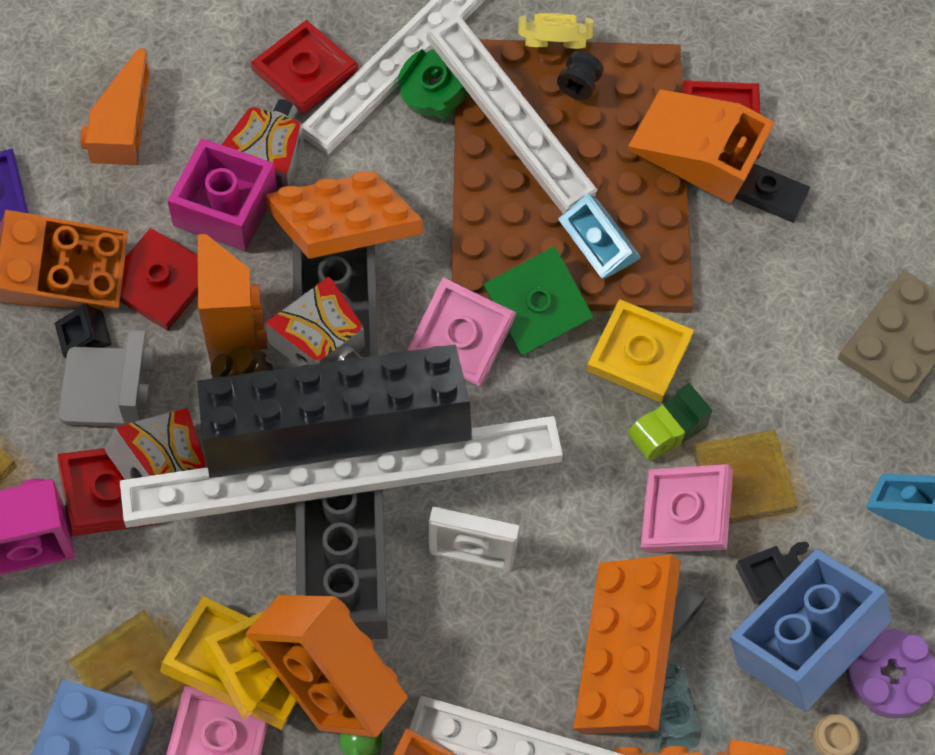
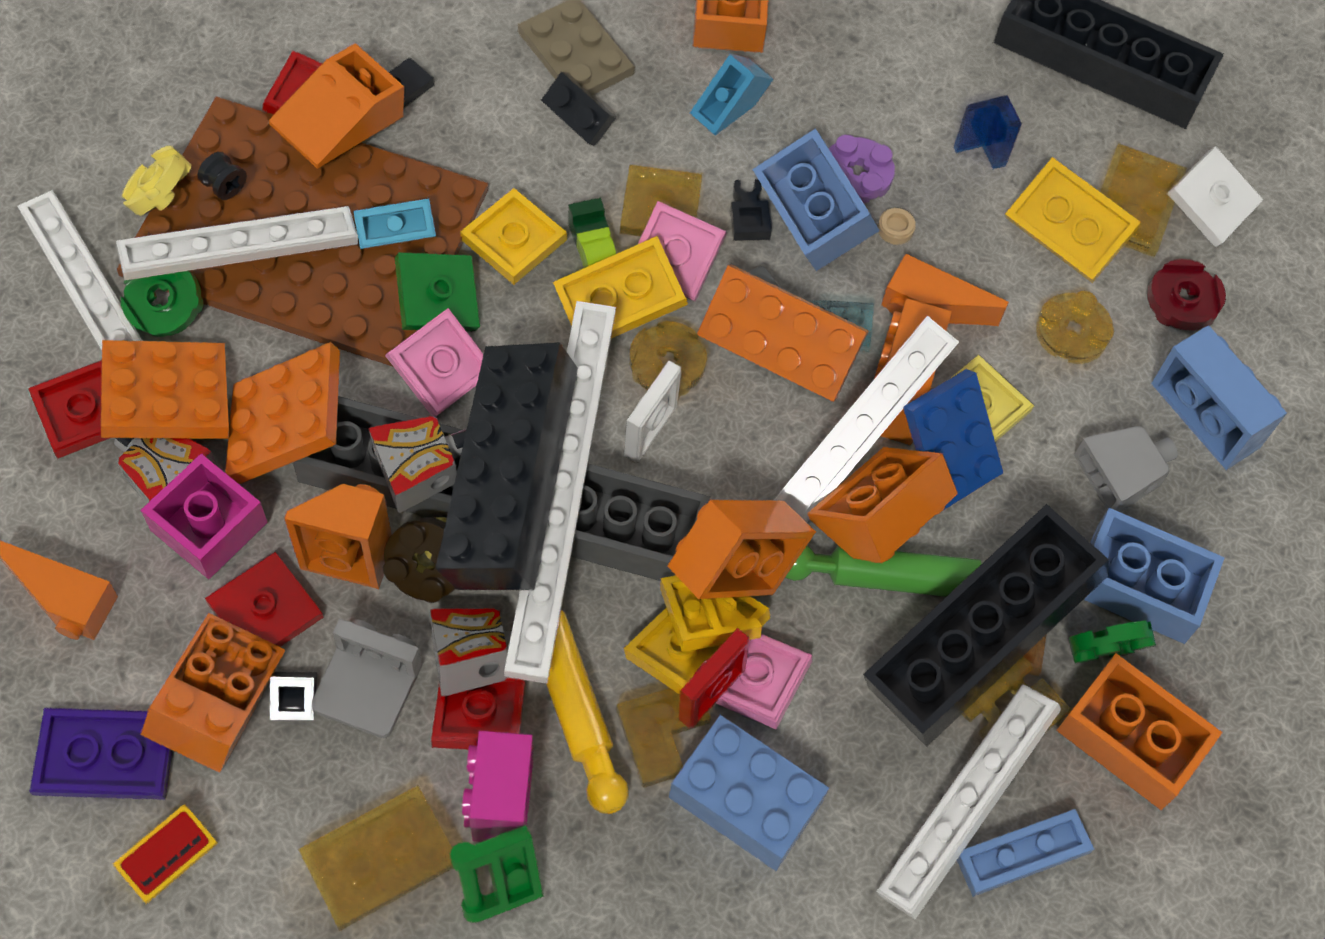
camera: 75 degrees left, 0 degrees up
(129, 578) = (584, 723): none -> yellow piece
(175, 681) = (713, 679): none -> red plate
(337, 116) = (164, 390): none -> orange plate
(574, 526) = (665, 338): none -> clear yellow plate
(613, 470) = (632, 281): none -> yellow plate
(824, 360) = (578, 108): none -> black plate

